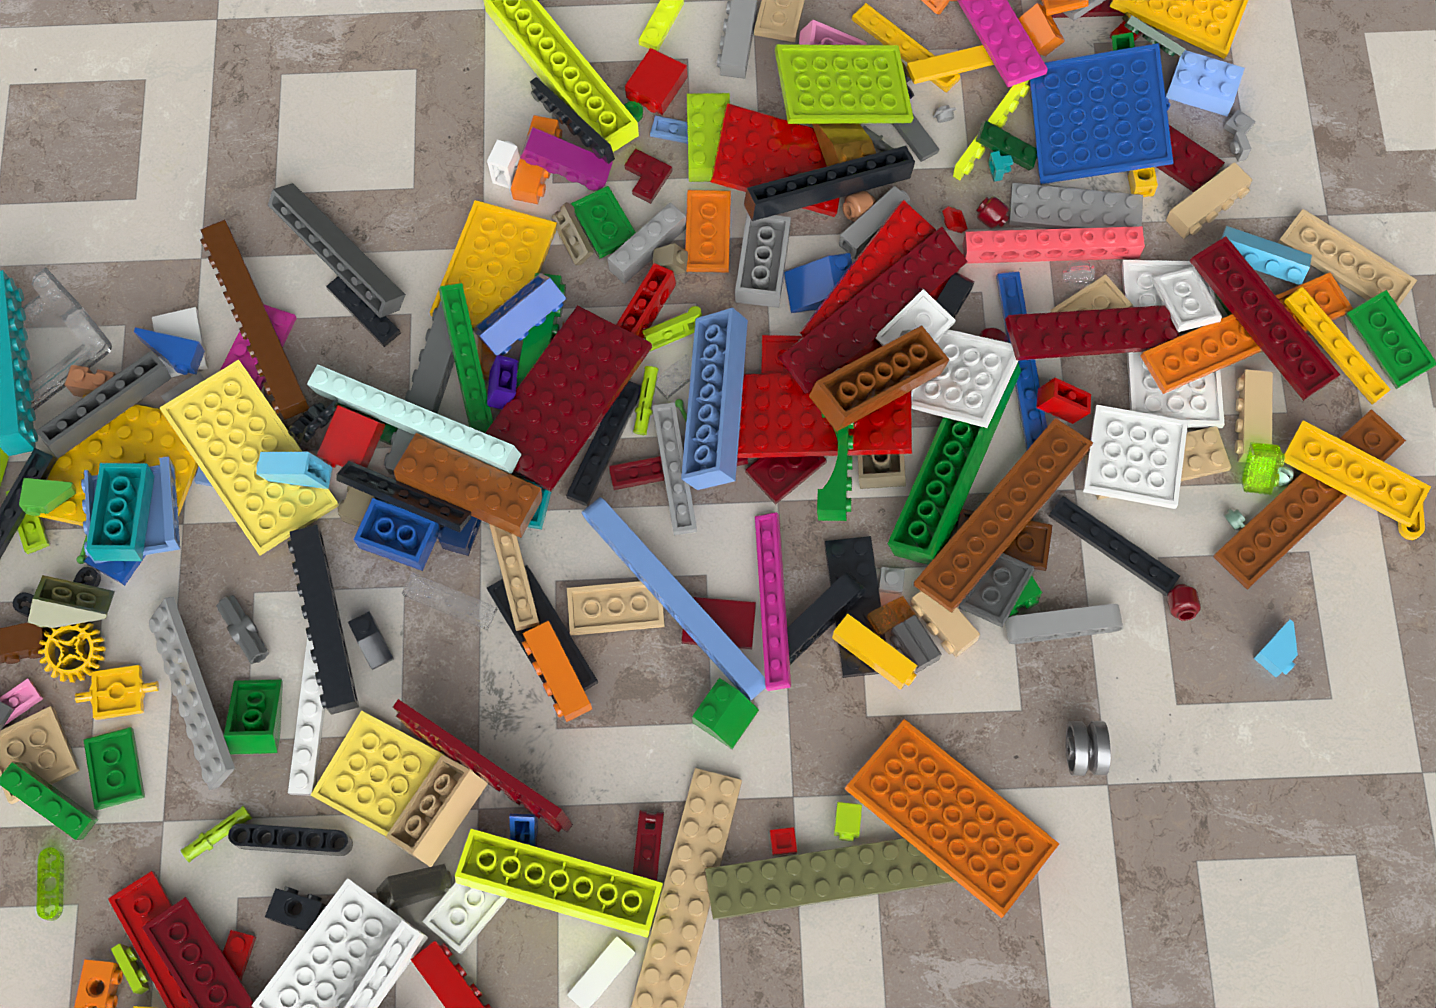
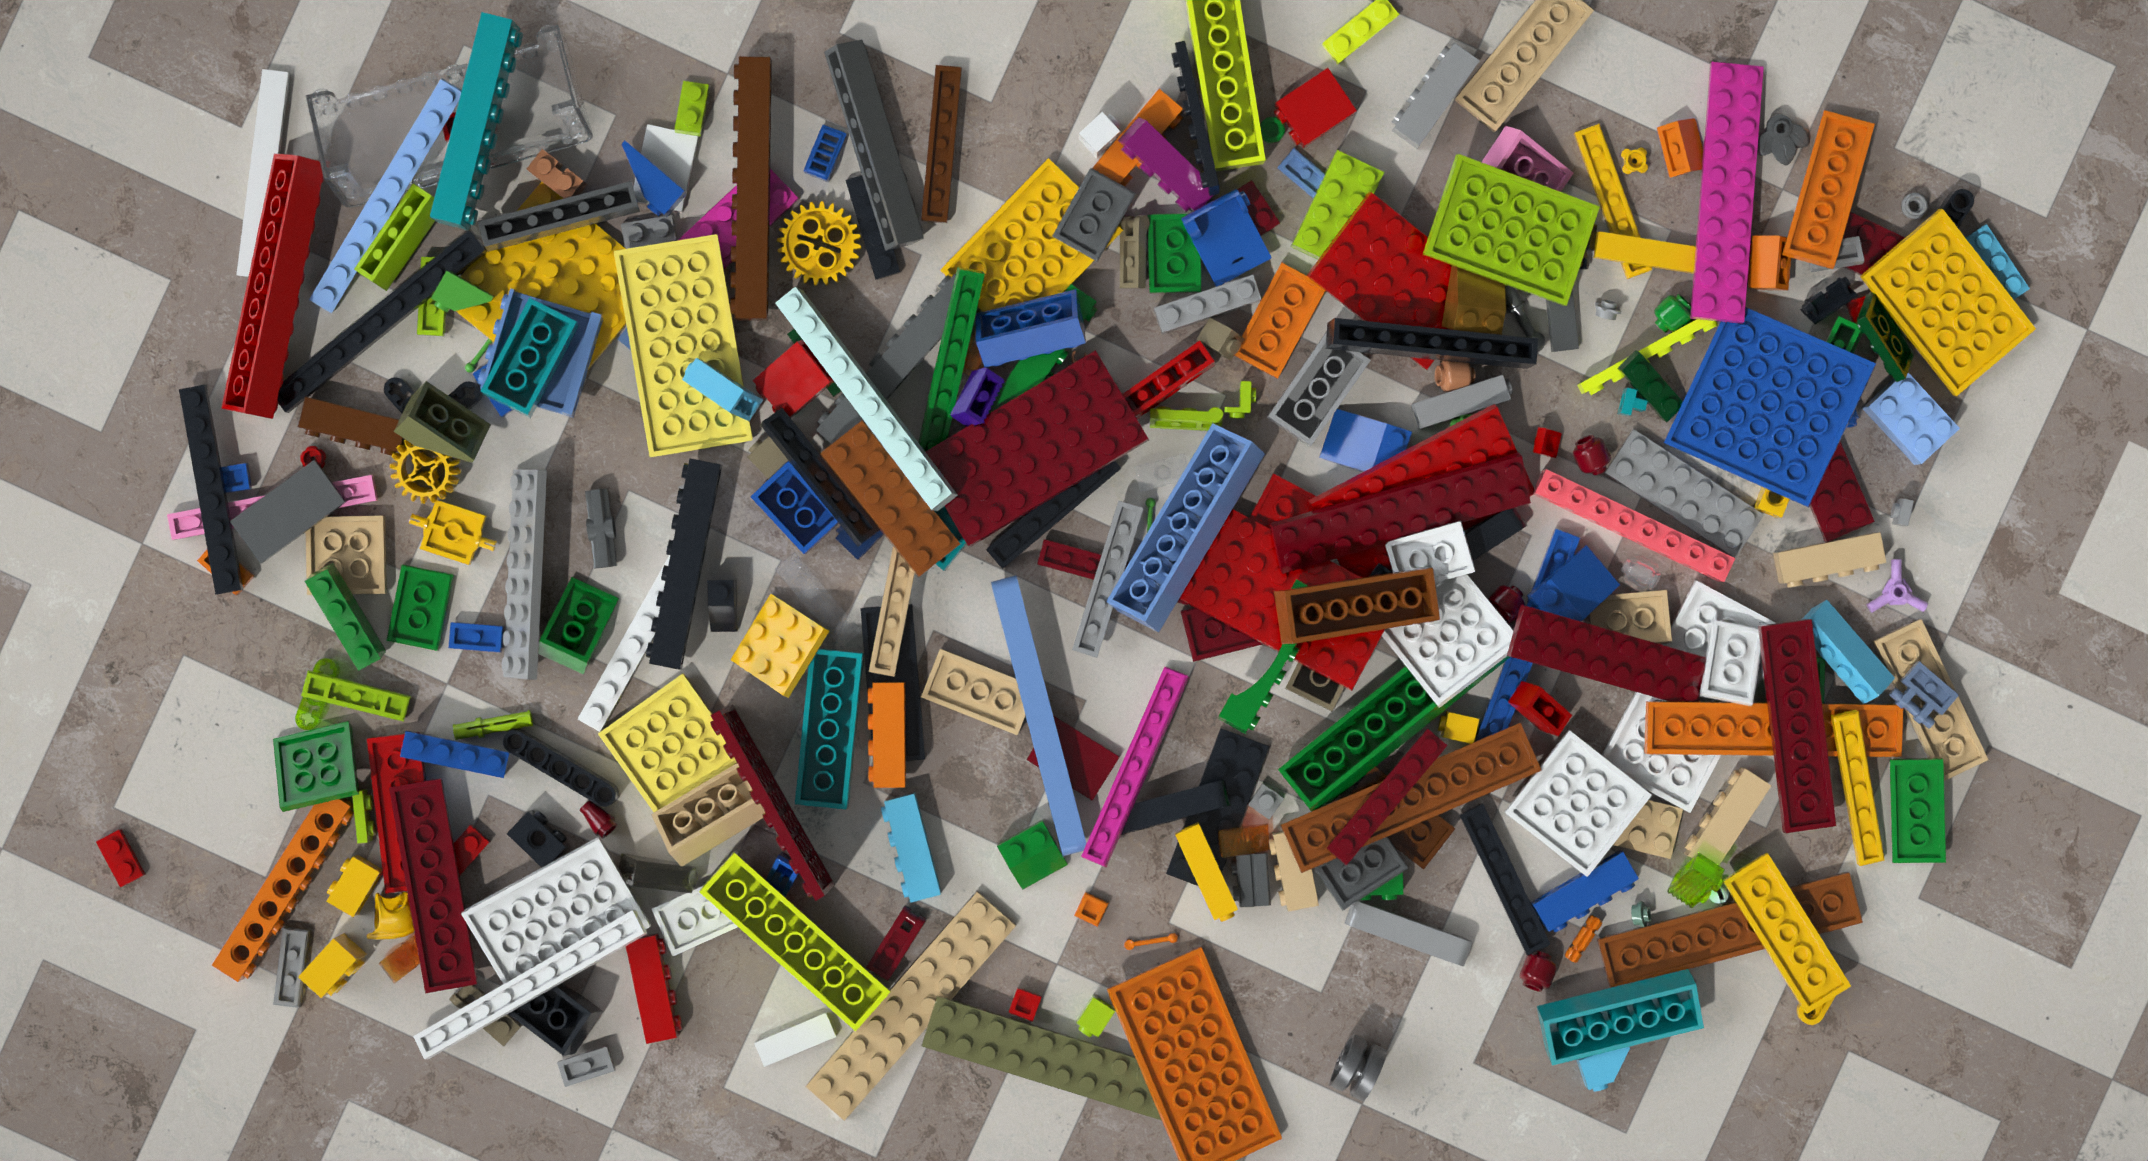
camera: 25 degrees right, 20 degrees up
(69, 943) = (315, 766): none -> green plate
(83, 866) = (355, 695): none -> lime plate
(171, 767) = (476, 637): none -> blue plate
(182, 290) = (691, 108): none -> lime plate
(189, 871) = (454, 754): none -> blue brick
(303, 290) = (815, 172): none -> blue slope
(315, 417) = (772, 339): black hinge -> none
(325, 337) = (810, 265): none -> yellow gear
(342, 868) = (598, 819): none -> dark red cone
(388, 229) = (941, 144): none -> reddish brown plate
(432, 646) = (779, 645): none -> yellow plate
(505, 693) = (829, 729): none -> teal brick
(528, 218) = (1094, 214): none -> dark grey tile
(622, 757) = (912, 847): none -> medium azure brick
(635, 188) = (1226, 237): none -> blue door
(644, 410) = (1110, 498): lime pin -> none
(712, 294) = (1246, 396): none -> lime bracket
(797, 736) = (1091, 909): none -> orange tile
(844, 749) = (1130, 944): none -> orange hinge
(905, 9) = (1639, 155): none -> yellow plate
(985, 519) = (1386, 797): none -> dark red plate
(992, 93) = (1673, 313): none -> green head
(1009, 448) = (1458, 727): none -> yellow brick
(1038, 296) = (1575, 587): none -> blue slope
(1094, 41) = (1824, 304): none -> black hinge
(1181, 522) = (1582, 892): none -> blue brick
(1202, 561) = (1583, 938): none -> orange axle
(1239, 122) = (1920, 483): light grey plate -> none
(1270, 601) = (1620, 1017): none -> teal brick
(1272, 200) = (1897, 591): none -> lavender piece
(1341, 249) = (1929, 688): none -> sand blue plate

